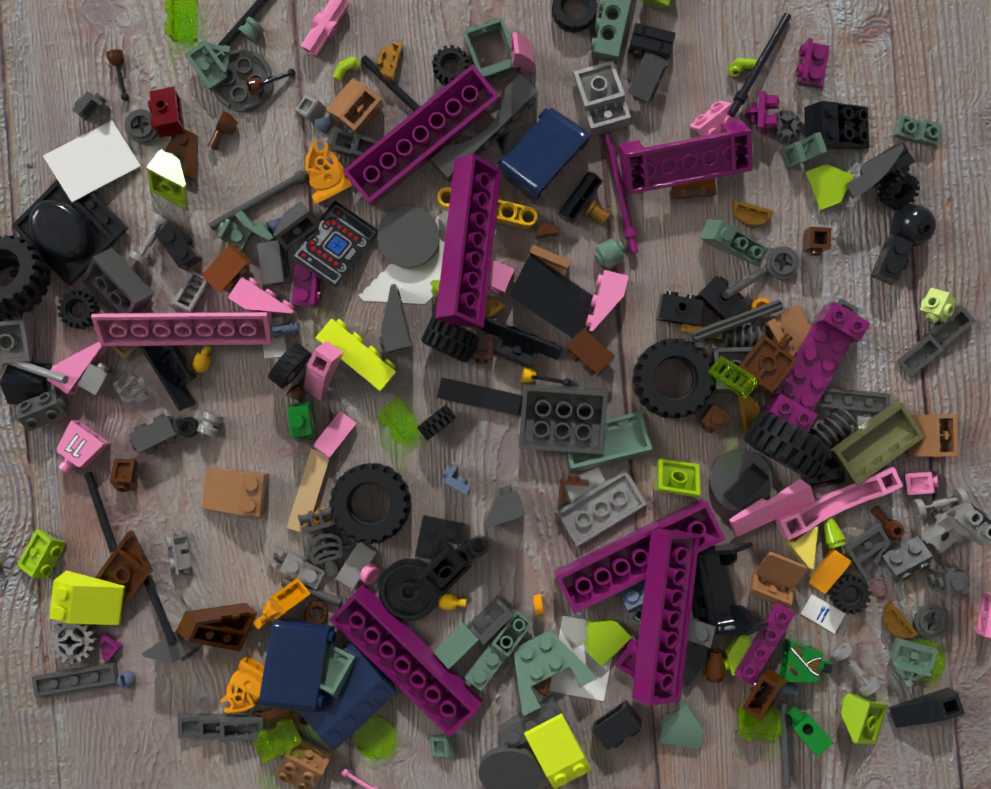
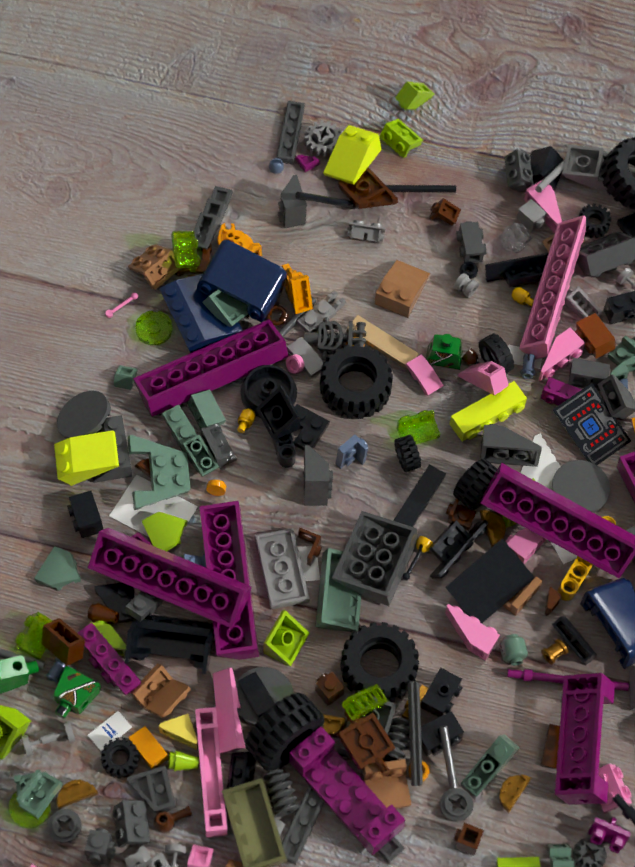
camera: 110 degrees right, 25 degrees down
(80, 446) = (480, 188): bright pink torso -> none
(218, 626) = (296, 236): reddish brown wedge -> none
(590, 353) = (426, 600): reddish brown brick -> none

